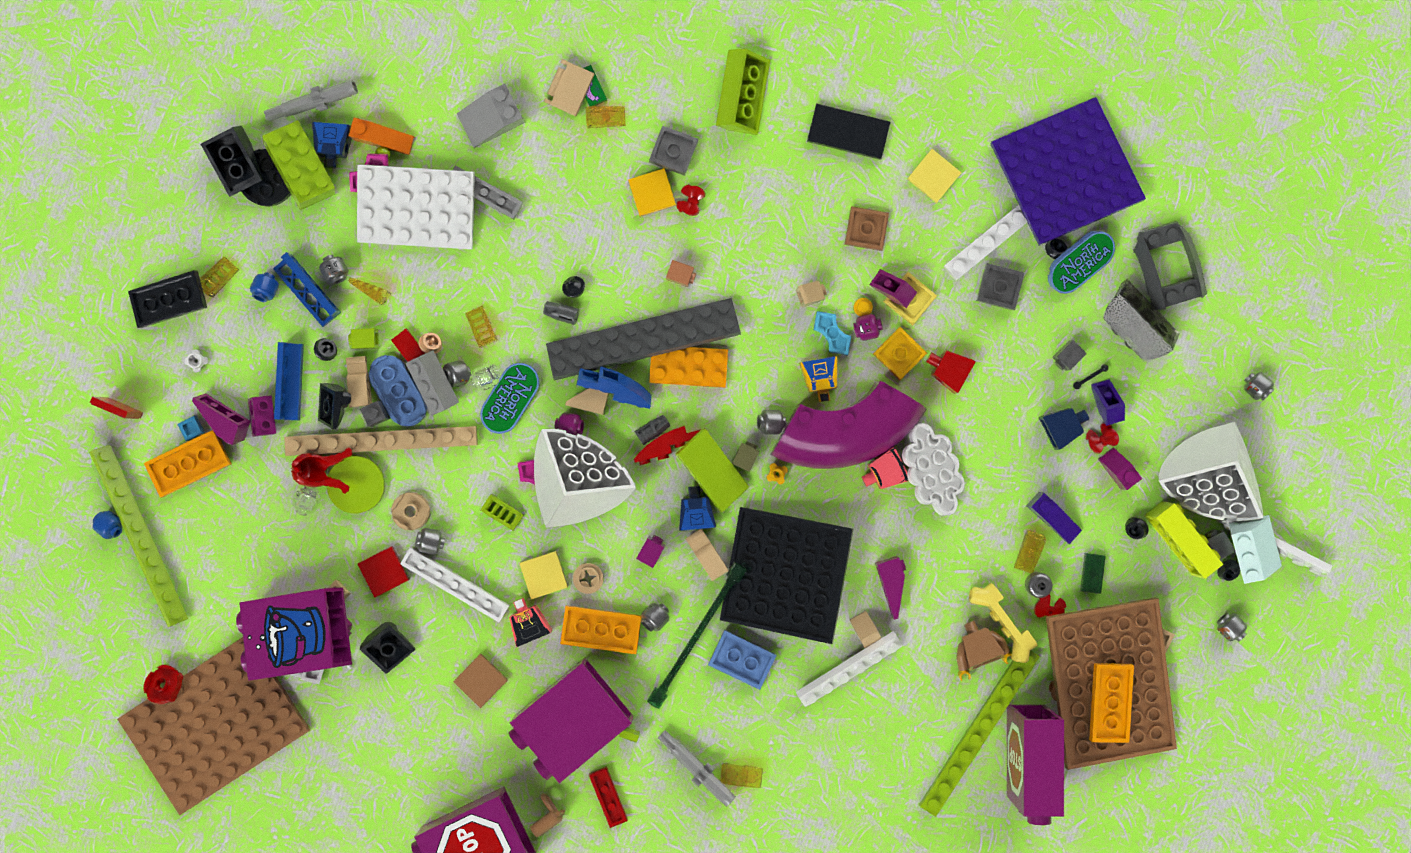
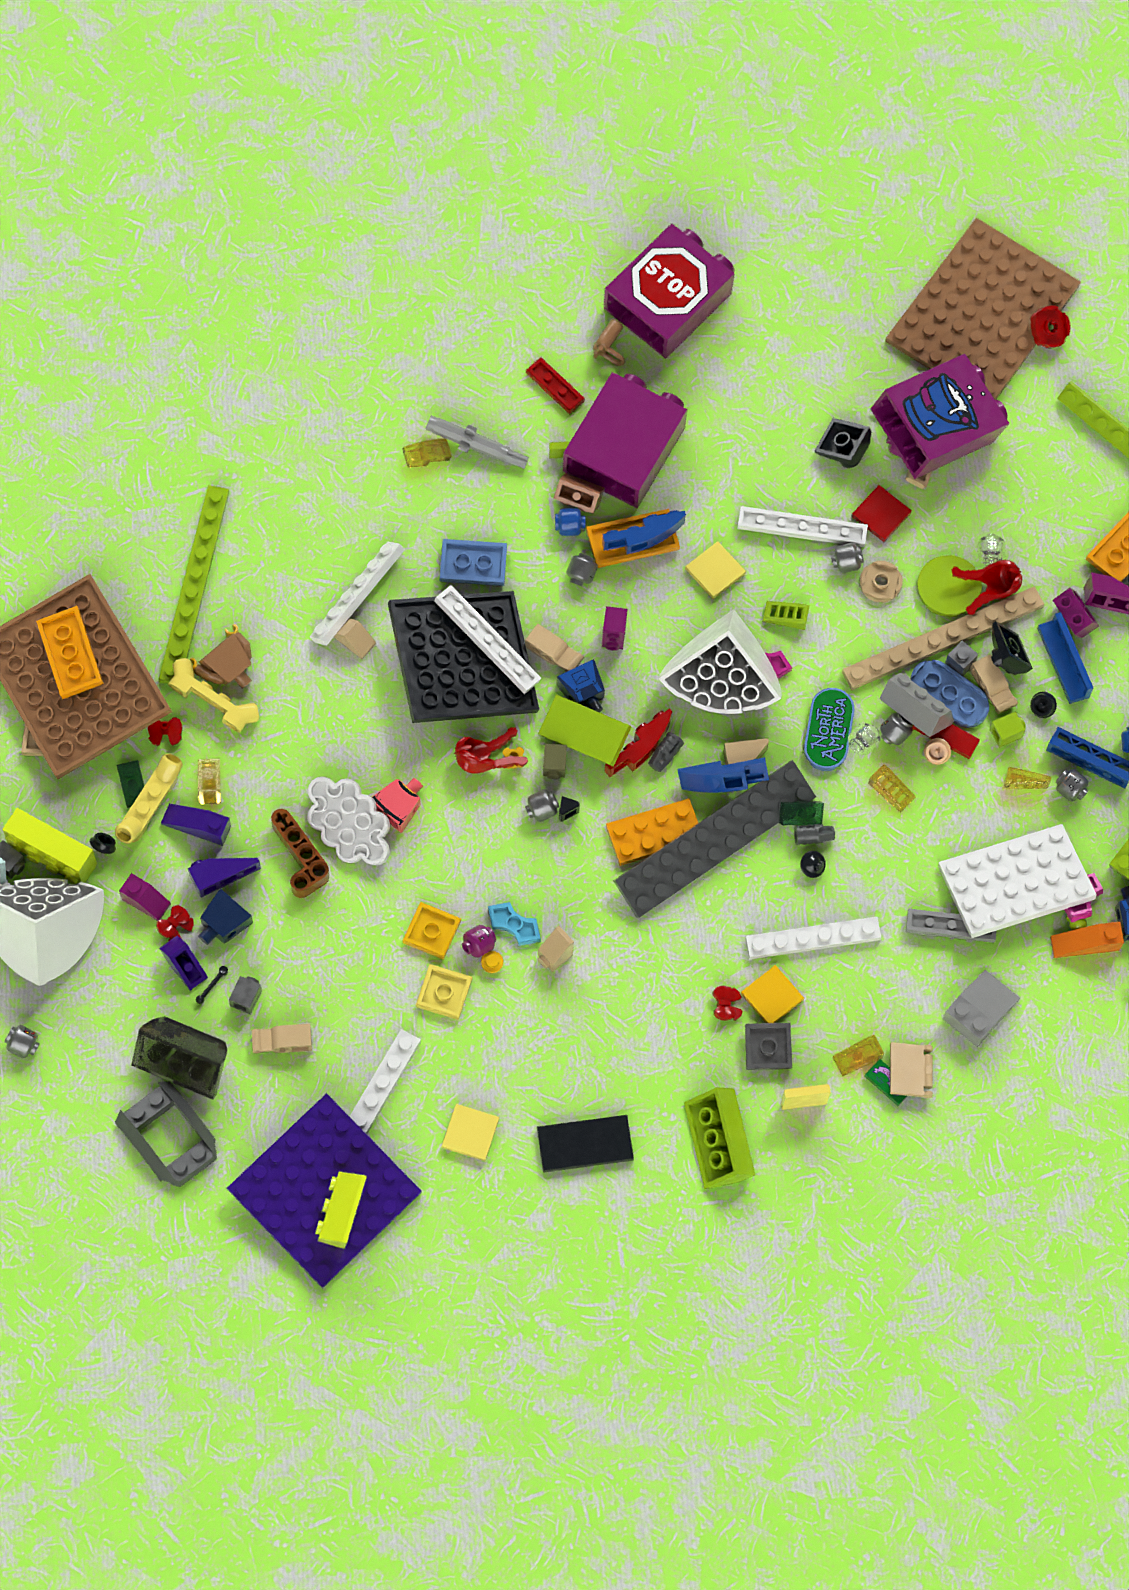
camera: 155 degrees right, 20 degrees down
(480, 680) = (734, 447): medium nougat tile -> none
(528, 623) = (710, 516): torso -> none
(565, 331) = (801, 813): none -> clear green plate
(570, 423) = (754, 723): magenta head -> none
(581, 627) = (653, 531): none -> blue slope
(584, 586) = (668, 574): tan gear -> none
(599, 227) = (813, 938): none -> white plate
(630, 686) = (579, 493): none -> nougat brick
(648, 664) = (569, 522): none -> blue head
(659, 694) = (545, 497): clear green hose -> none
(663, 93) = (805, 1096): none -> light yellow tile
(681, 273) = (704, 920): nougat brick -> none
(751, 411) = (568, 808): none -> black slope
(761, 580) = (487, 639): none -> white plate
(809, 488) = (474, 754): none -> red hair
(820, 376) = (509, 872): torso -> none
(850, 434) = (454, 825): magenta brick -> none
(866, 228) = (522, 1047): medium nougat tile -> none
(892, 580) = (350, 700): magenta slope -> none
(893, 288) = (468, 988): magenta slope -> none
(950, 369) = (370, 932): red torso -> none
(983, 461) = (298, 848): none -> dark orange beam
(1000, 286) = (350, 1039): flat silver plate -> none
(1035, 762) = (132, 564): magenta brick -> none
(1041, 579) = (188, 746): flat silver head -> none
(1053, 307) = (282, 1039): none -> tan piece
(1055, 248) = (301, 1102): black hat -> none
(1056, 467) = (220, 872): none -> dark purple slope
(1066, 141) = (340, 1209): none -> neon yellow slope
(1081, 261) = (270, 1098): tile -> none
(1088, 549) = (149, 799): none -> light yellow plate

